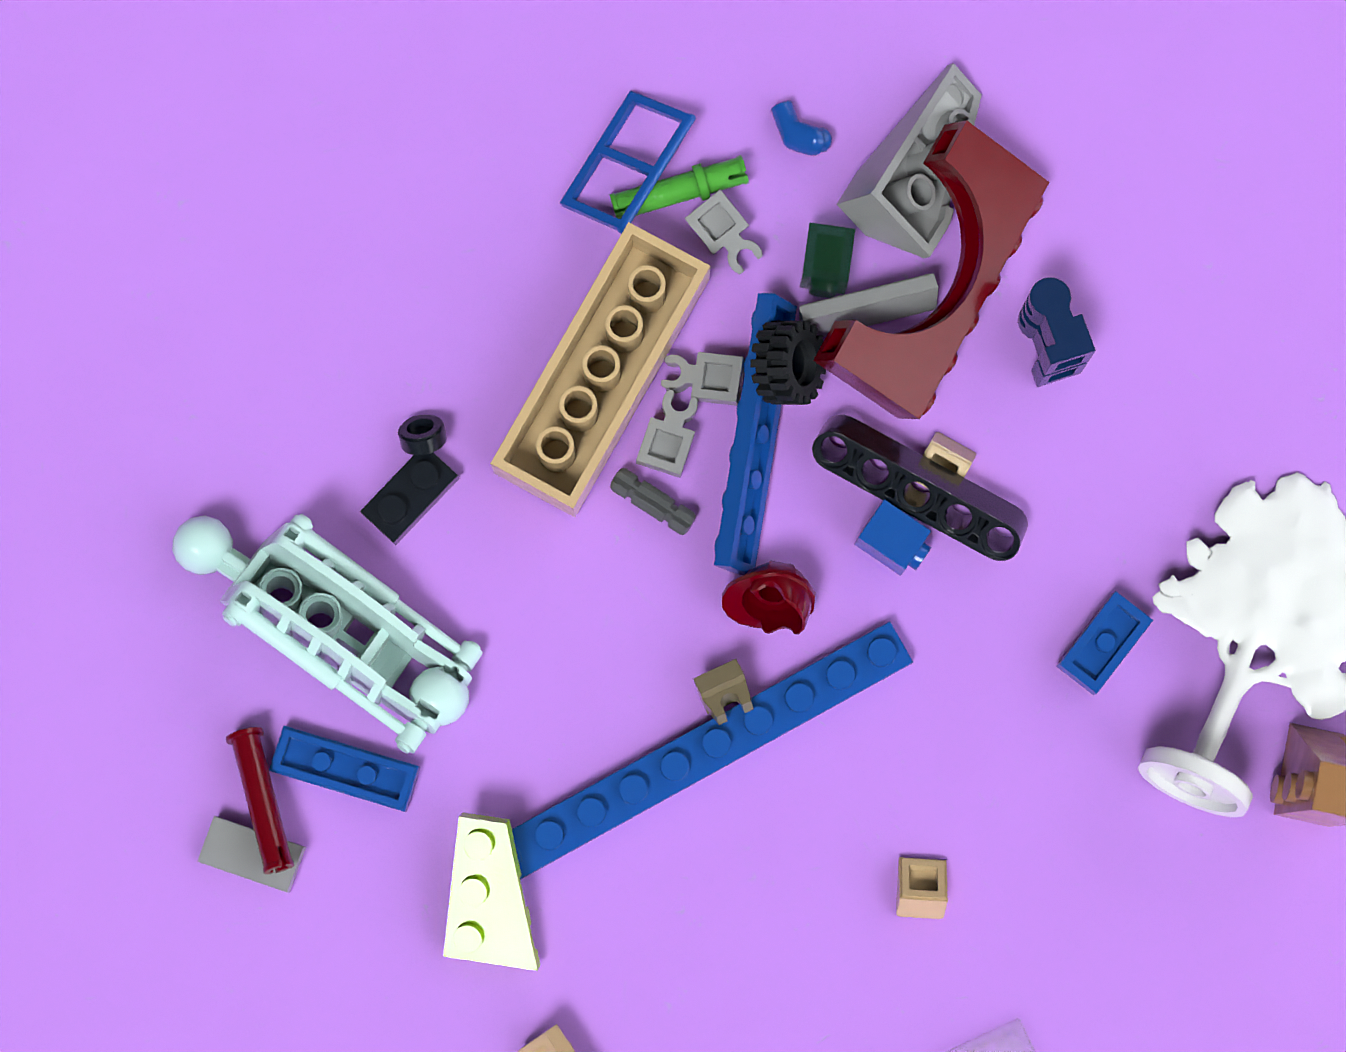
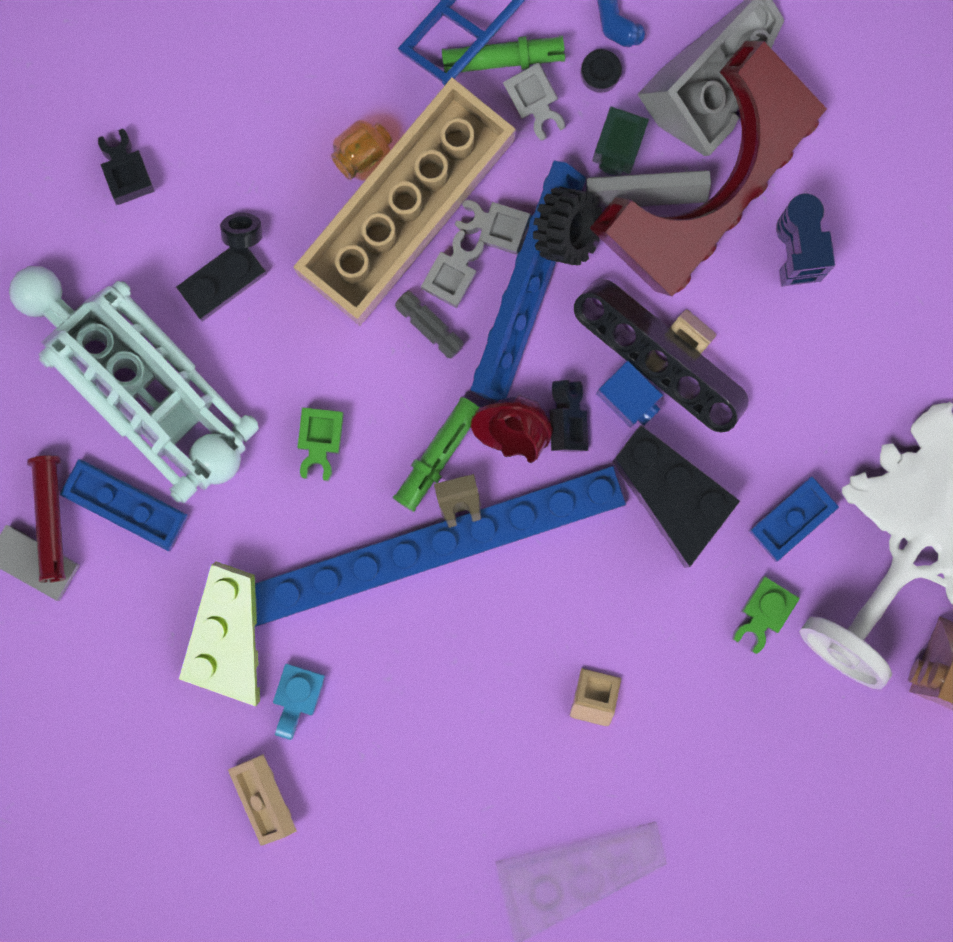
camera: 10 degrees right, 5 degrees up
(279, 392) = (125, 170): none -> black plate
(540, 321) = (360, 149): none -> clear yellow head
(553, 647) = (319, 434): none -> bright green plate
(581, 947) = (297, 693): none -> dark azure plate
(689, 646) = (435, 457): none -> bright green pin
(790, 186) = (601, 71): none -> black tile
(829, 578) = (568, 421): none -> black plate
(966, 639) = (675, 494): none -> black wedge
(1096, 750) = (768, 608): none -> bright green plate

